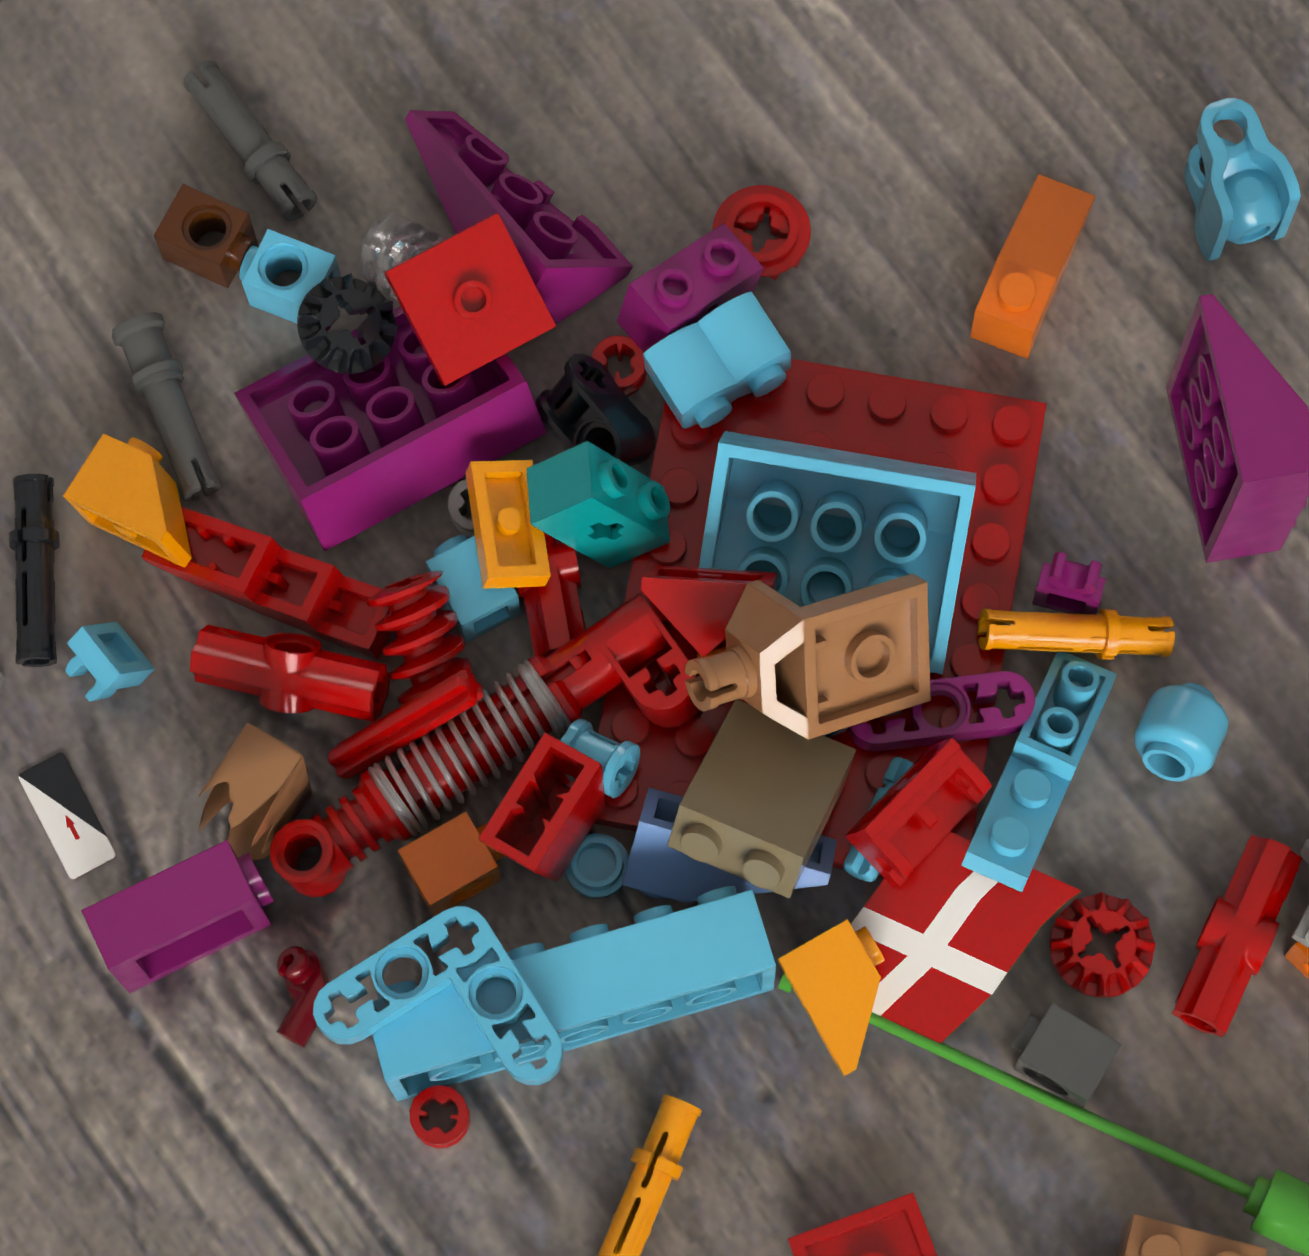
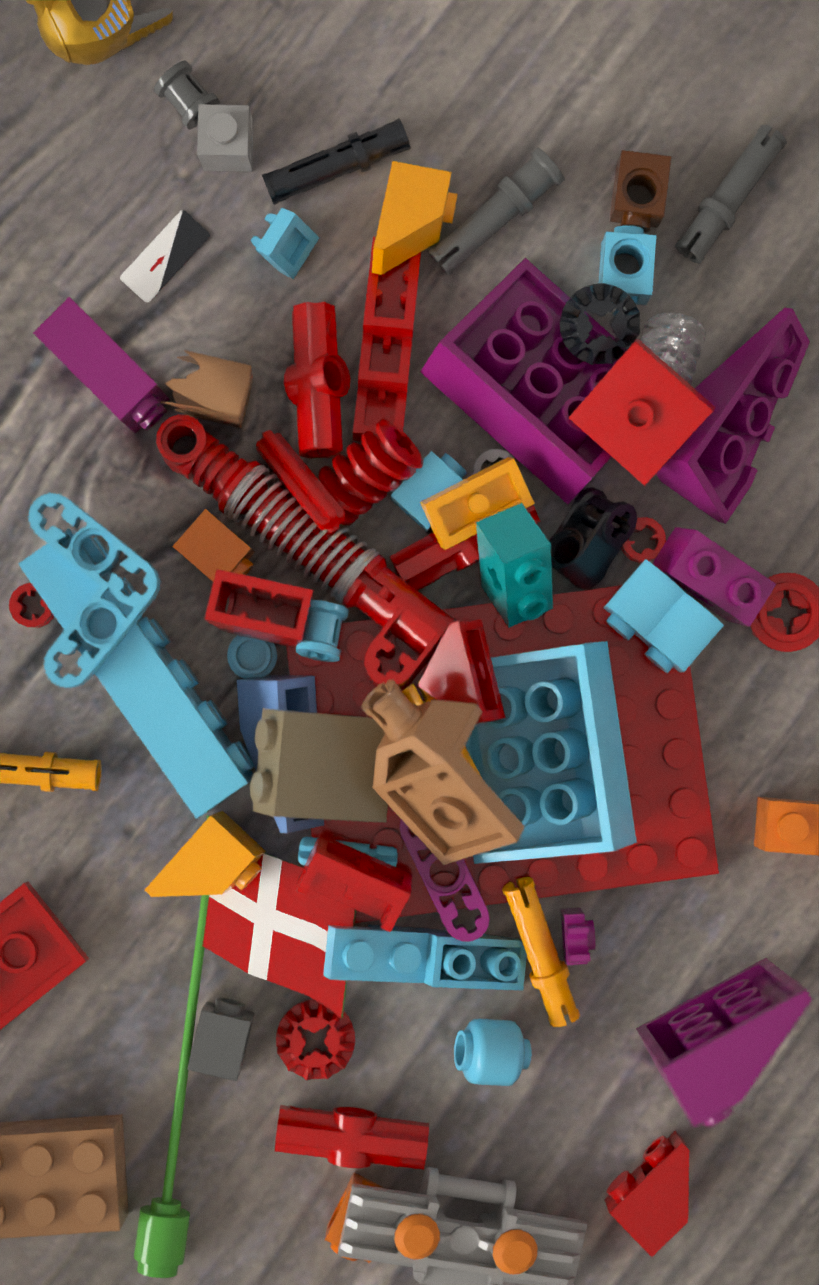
camera: 70 degrees right, 15 degrees up
(304, 979) = (91, 480): dark red arm -> none

